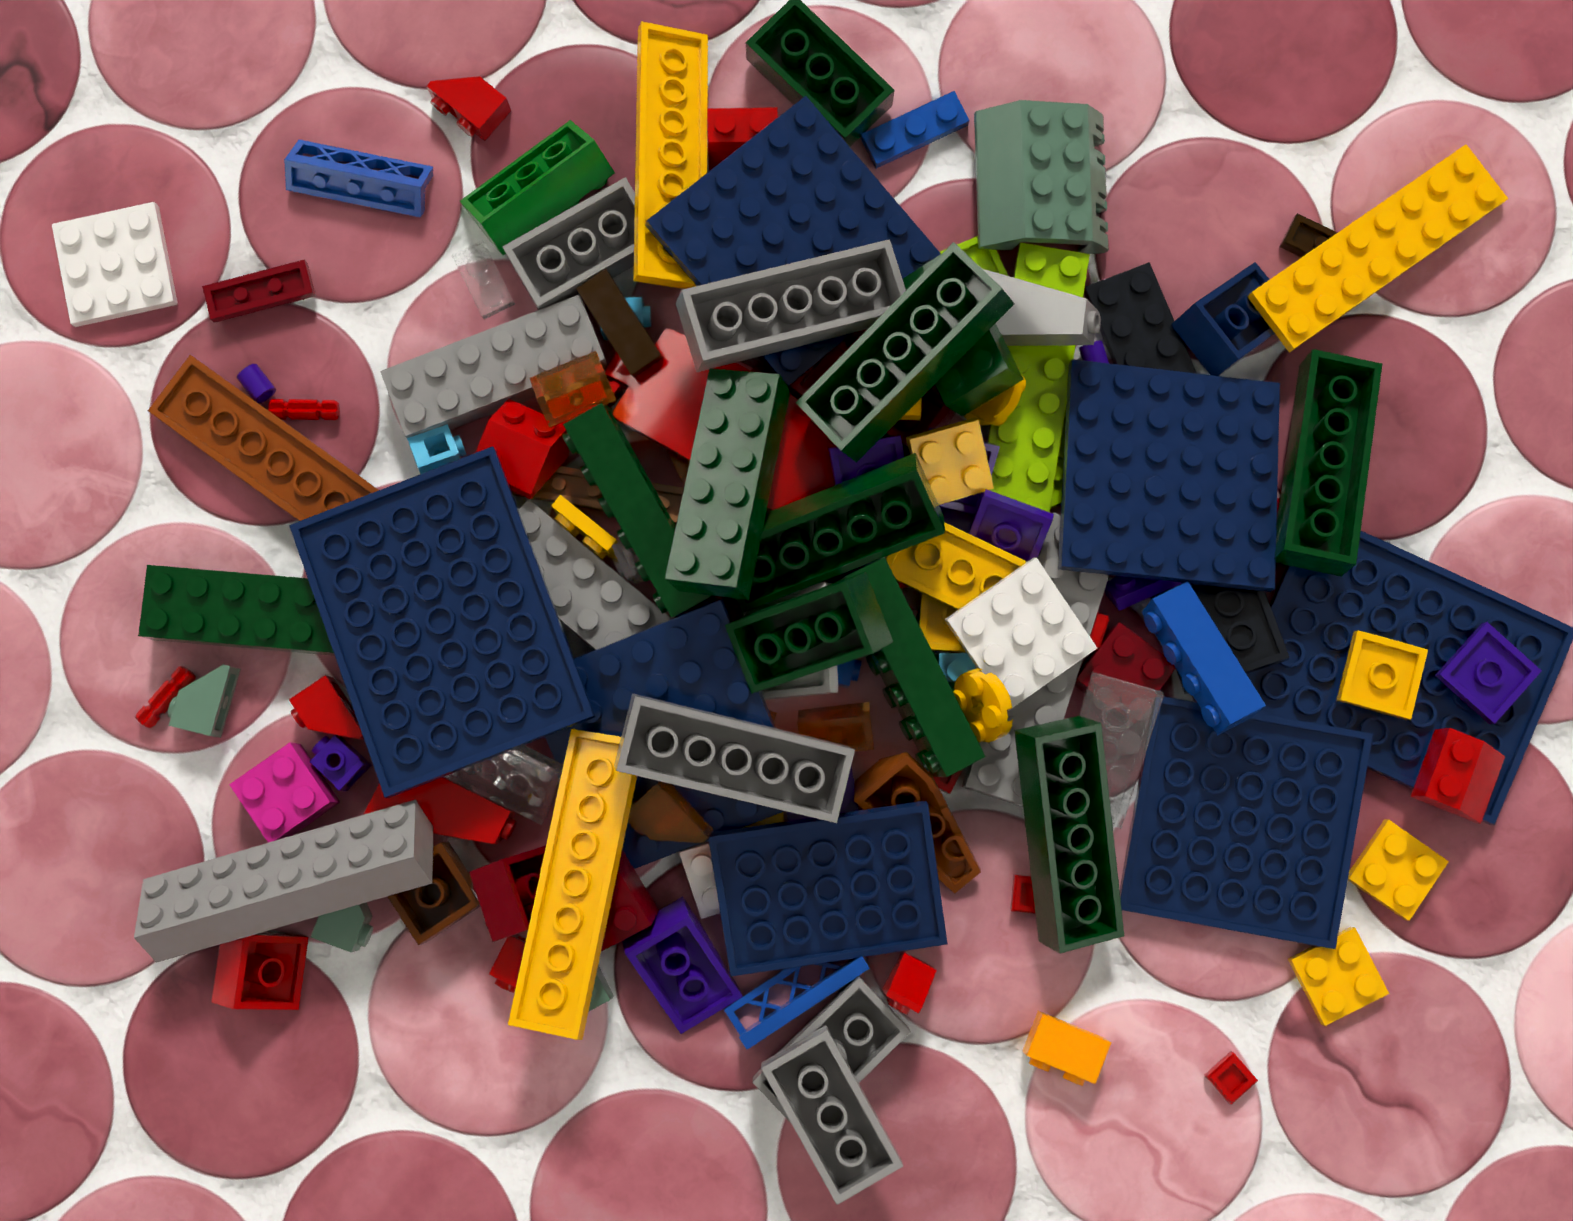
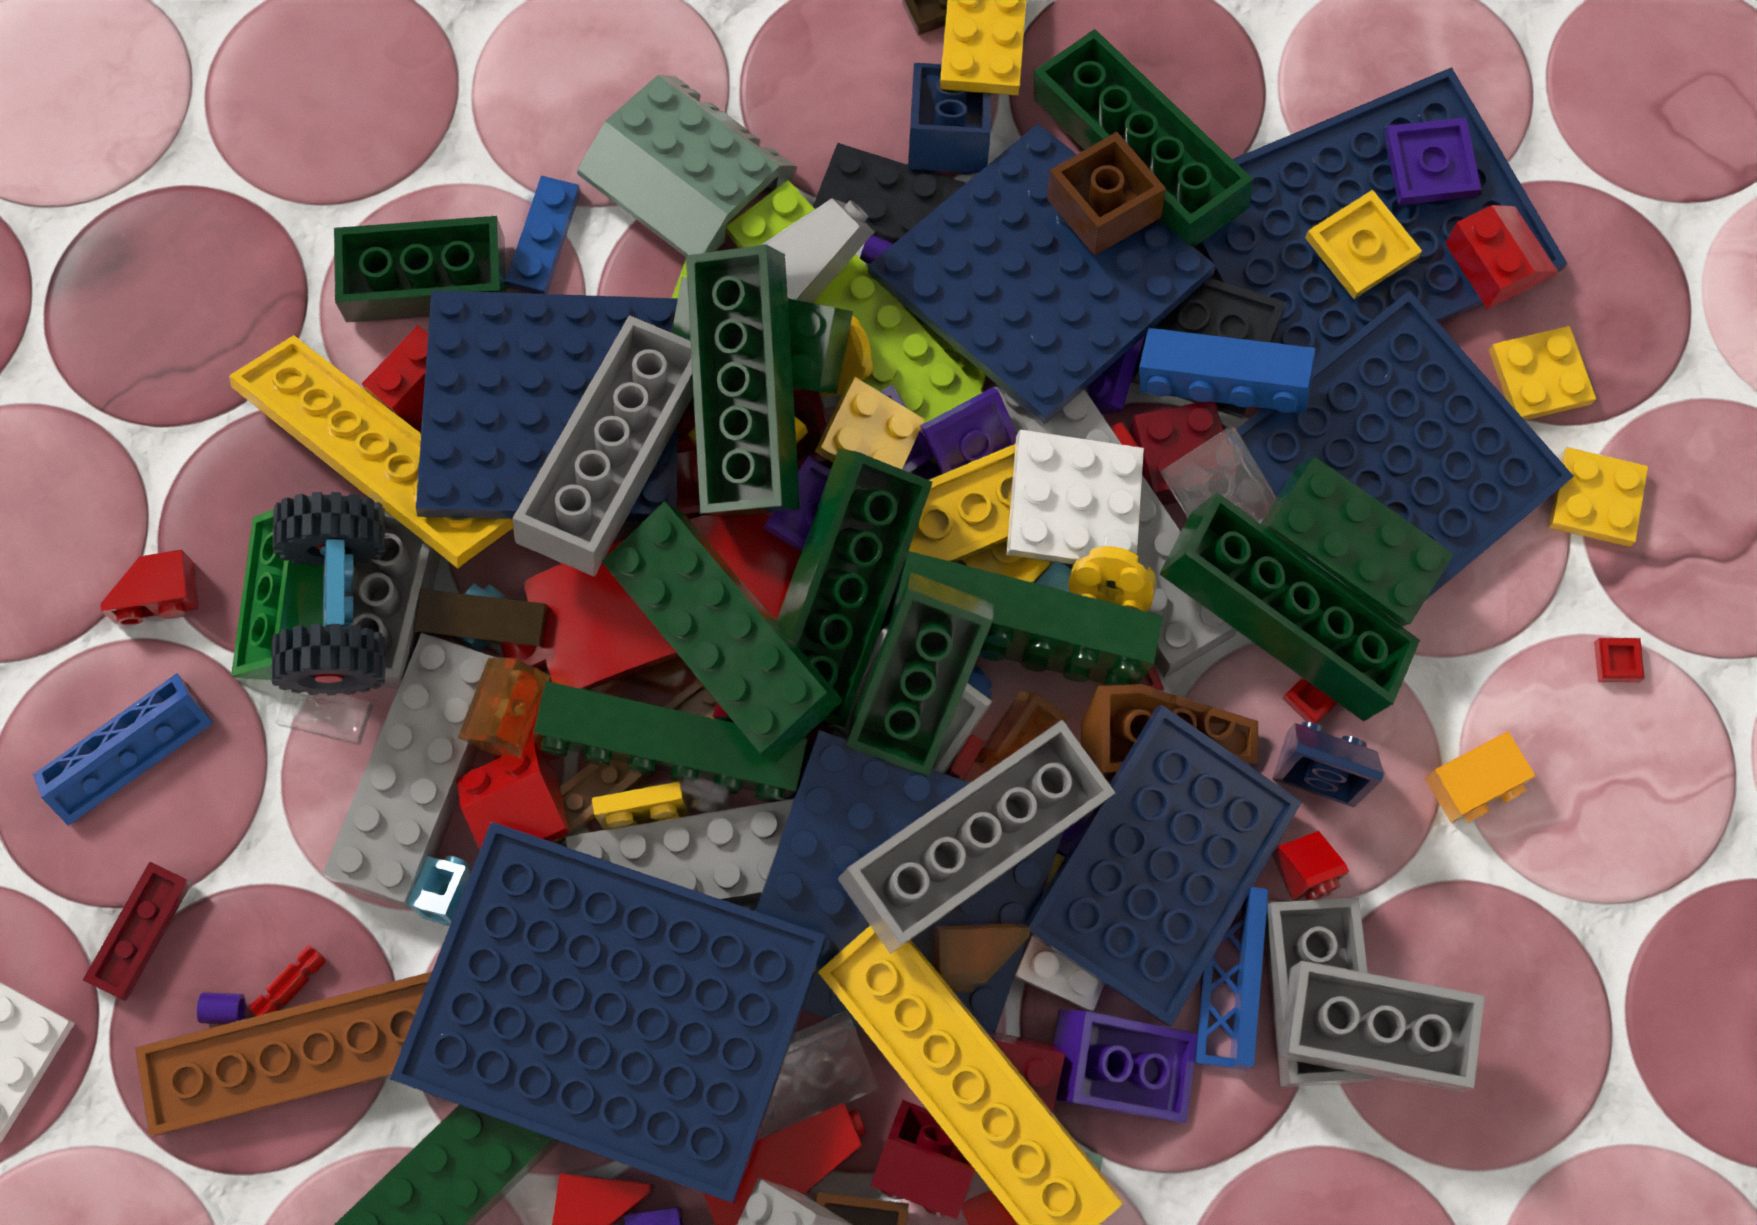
camera: 50 degrees left, 10 degrees down
(584, 184) = (334, 534): none -> black plate
(793, 704) = (965, 758): none -> red tile
(989, 940) = (1327, 764): none -> dark blue slope
(1152, 840) = (1357, 540): none -> dark green brick
(1257, 474) = (1105, 193): none -> reddish brown brick

